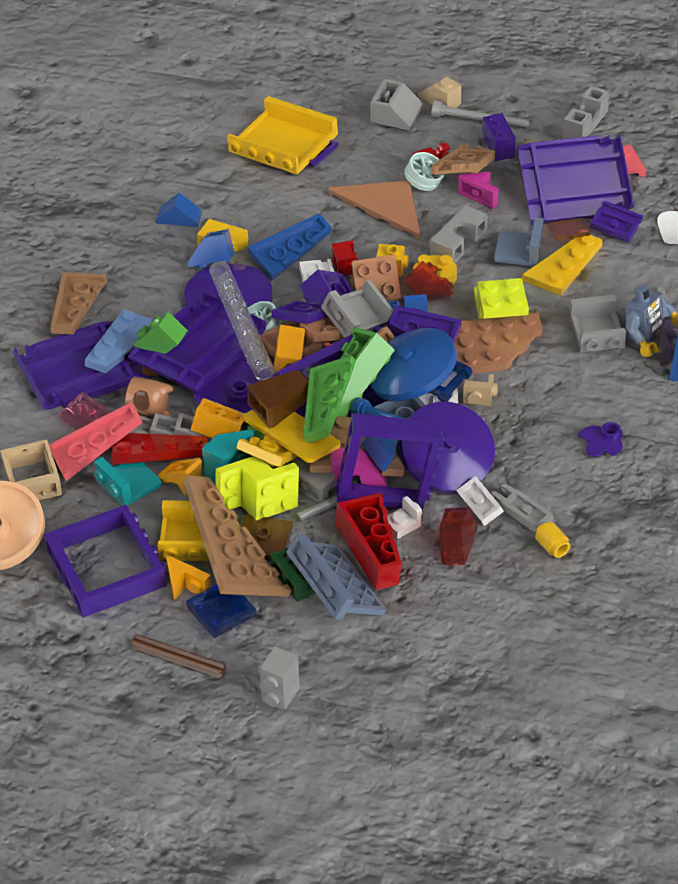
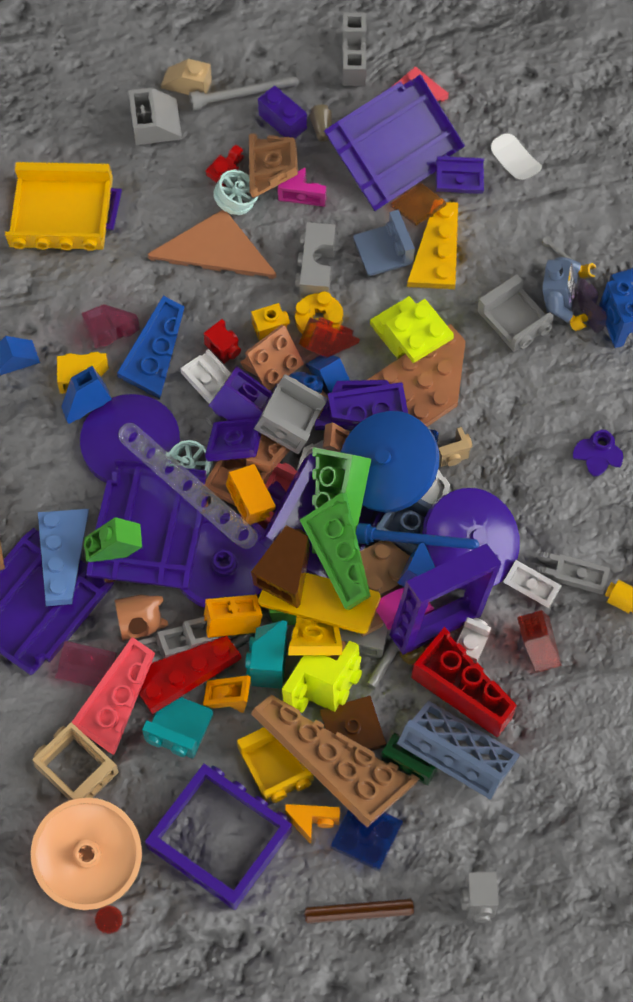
camera: 30 degrees left, 20 degrees up
(265, 217) = (108, 324): none -> clear pink slope

